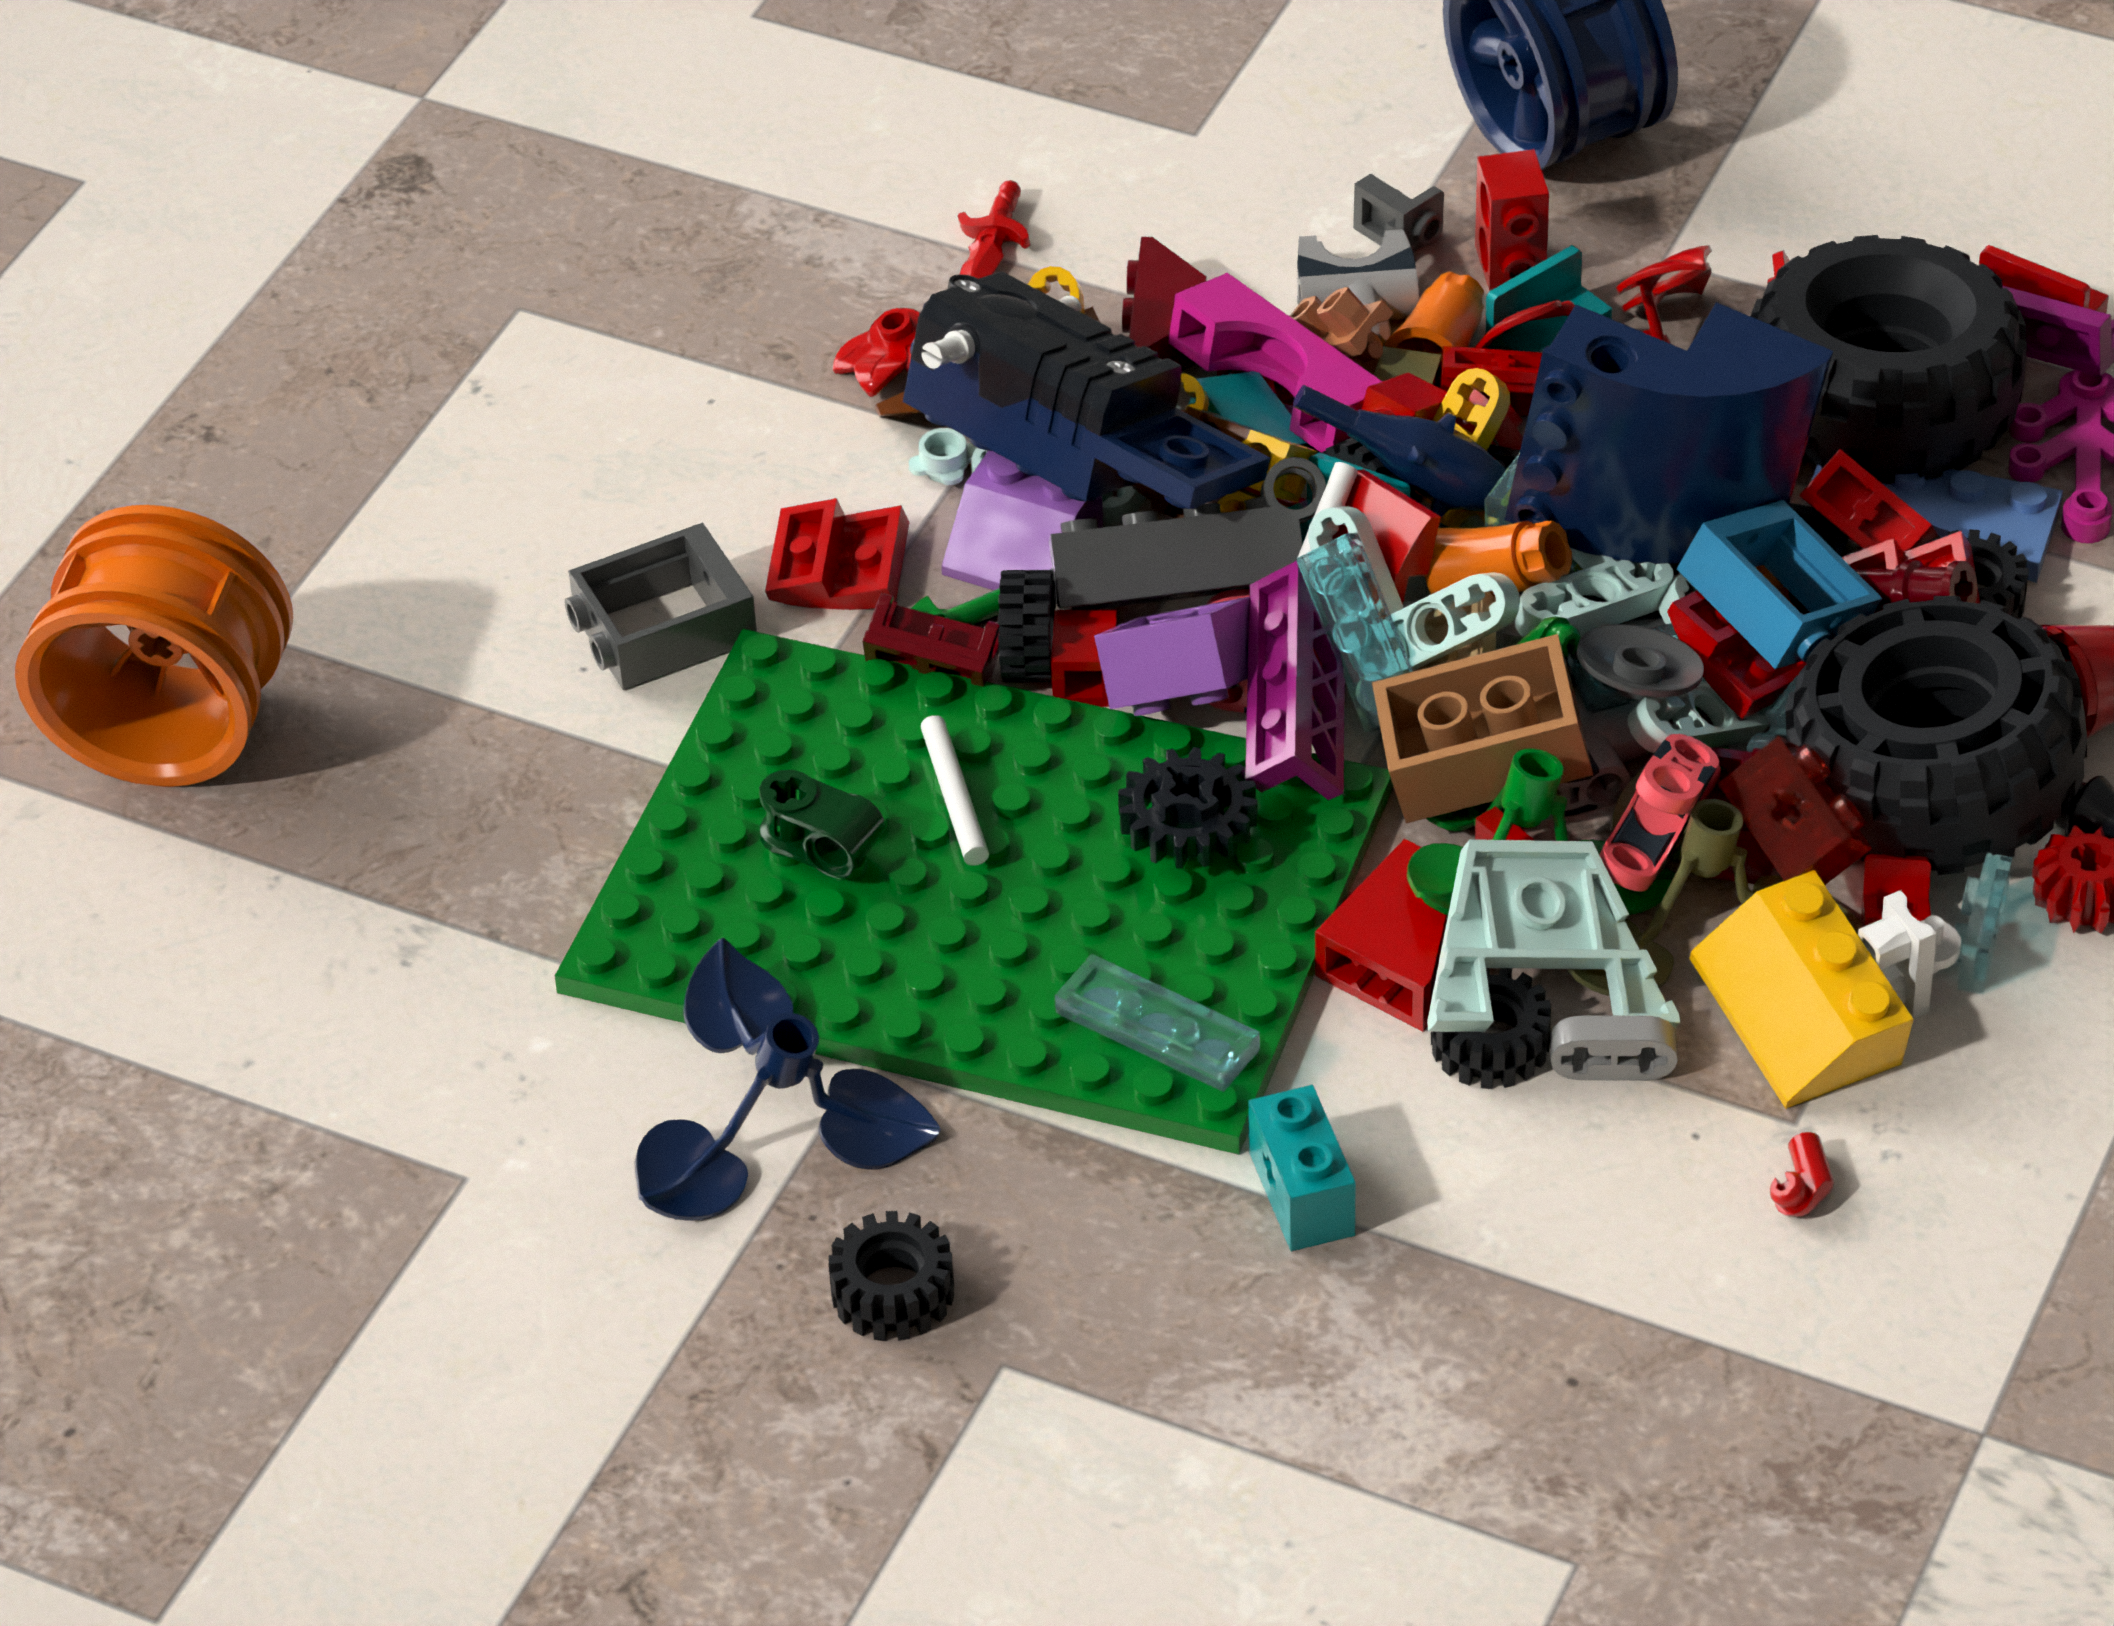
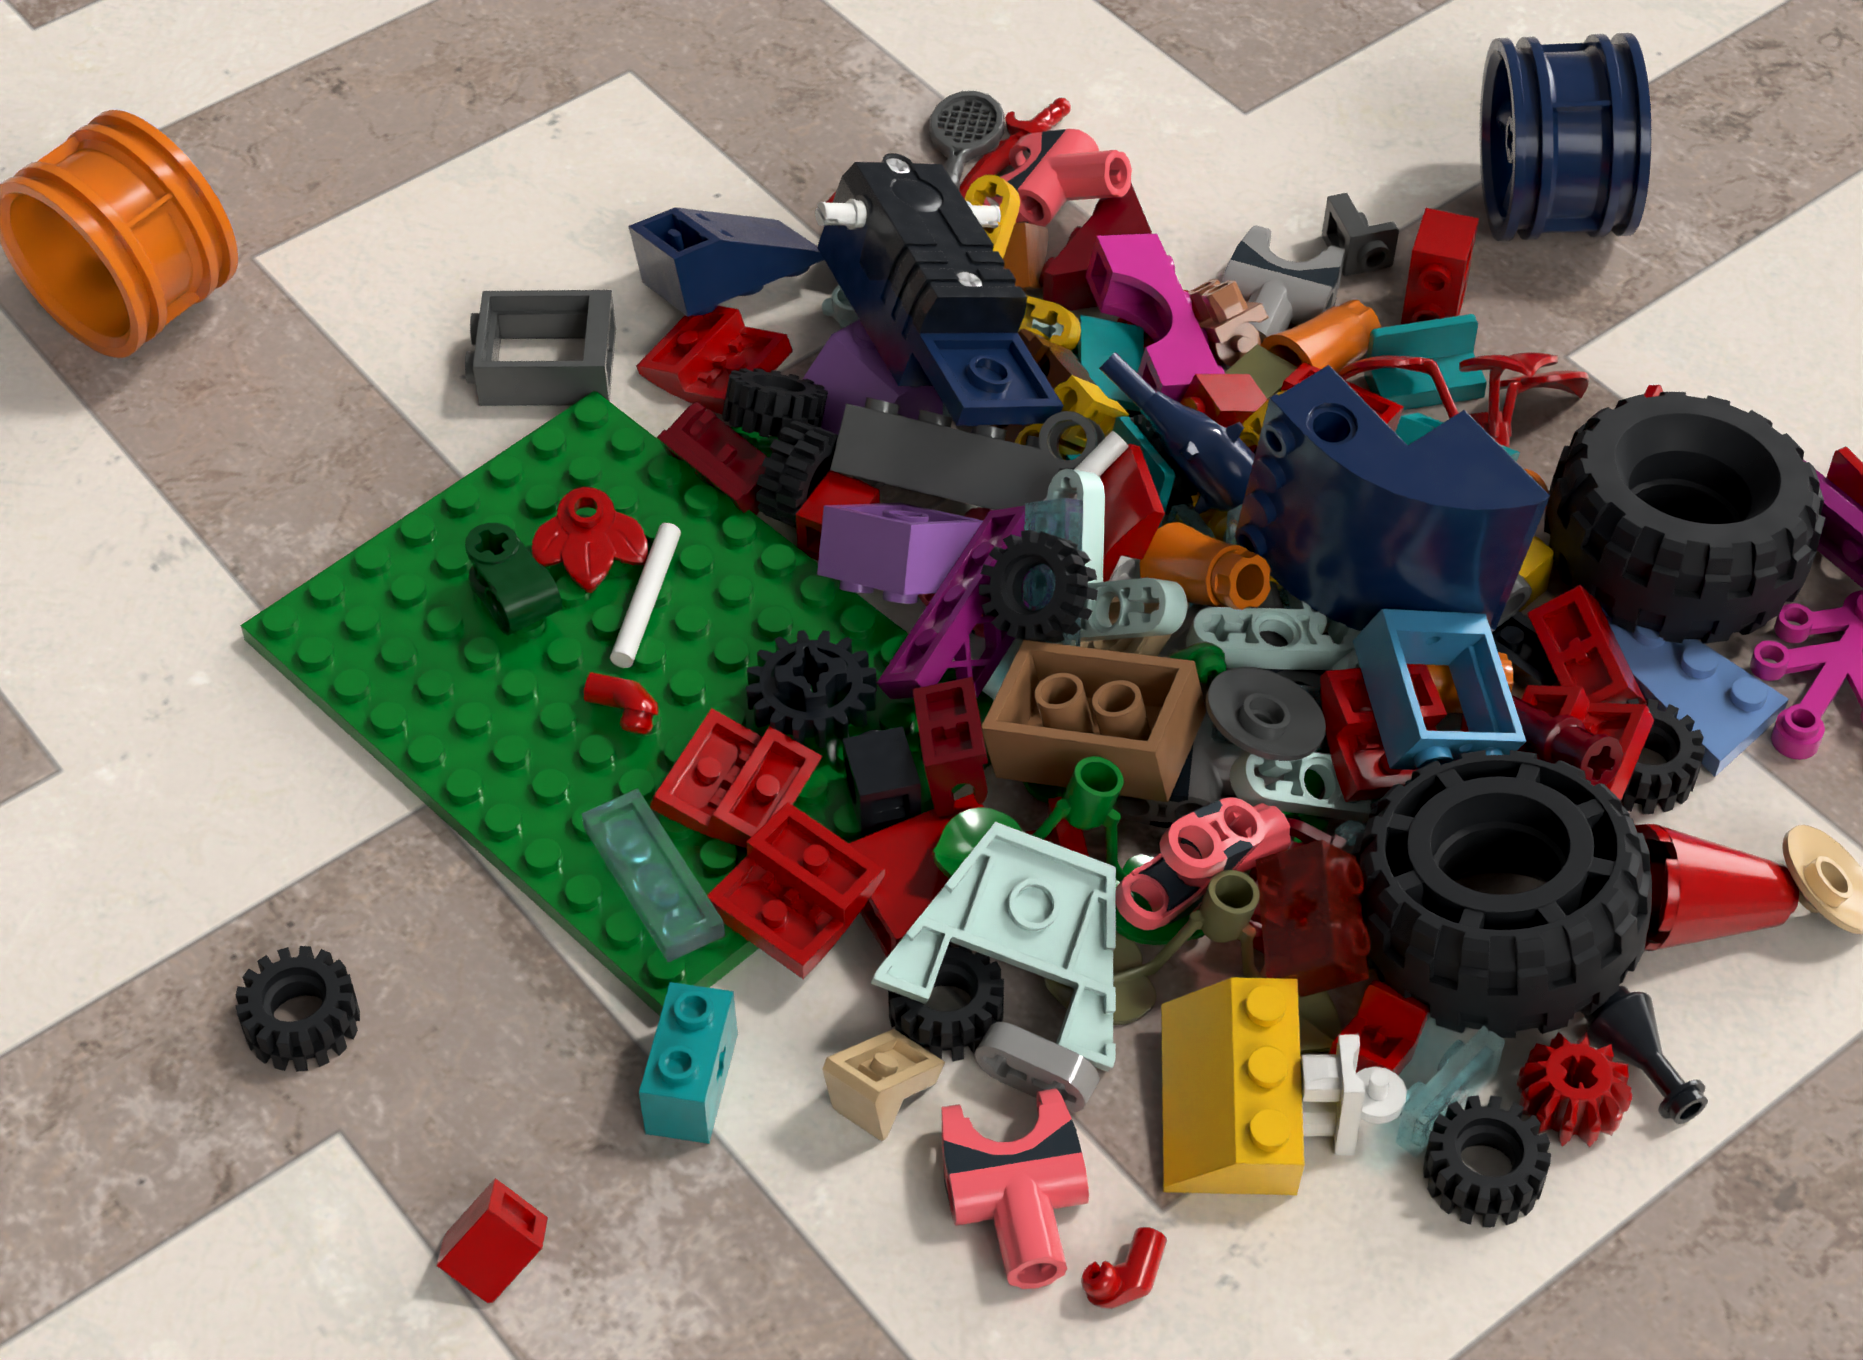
camera: 25 degrees right, 5 degrees up
(738, 1004) = (332, 714): dark blue plant -> none
(776, 457) = (714, 256): none -> dark blue slope
(867, 763) = (589, 543): none -> red plate
(933, 268) = (961, 149): none -> dark grey piece
(947, 571) = (770, 401): none -> black tyre
(1009, 883) = (623, 694): none -> red arm
(1078, 242) = (1062, 169): none -> coral connector
(1172, 918) = (733, 779): none -> red slope
(1229, 1383) = (492, 1241): none -> red panel
(1303, 981) = (796, 889): none -> red slope
(1313, 859) = (881, 778): none -> black brick
(1326, 614) = (1007, 581): none -> black tyre
(1364, 798) = (951, 741): none -> dark red hinge
(1483, 1119) = (875, 1077): none -> tan slope
(1660, 1145) = (1017, 1186): none -> coral connector
(2044, 992) = (1494, 1129): none -> black tyre

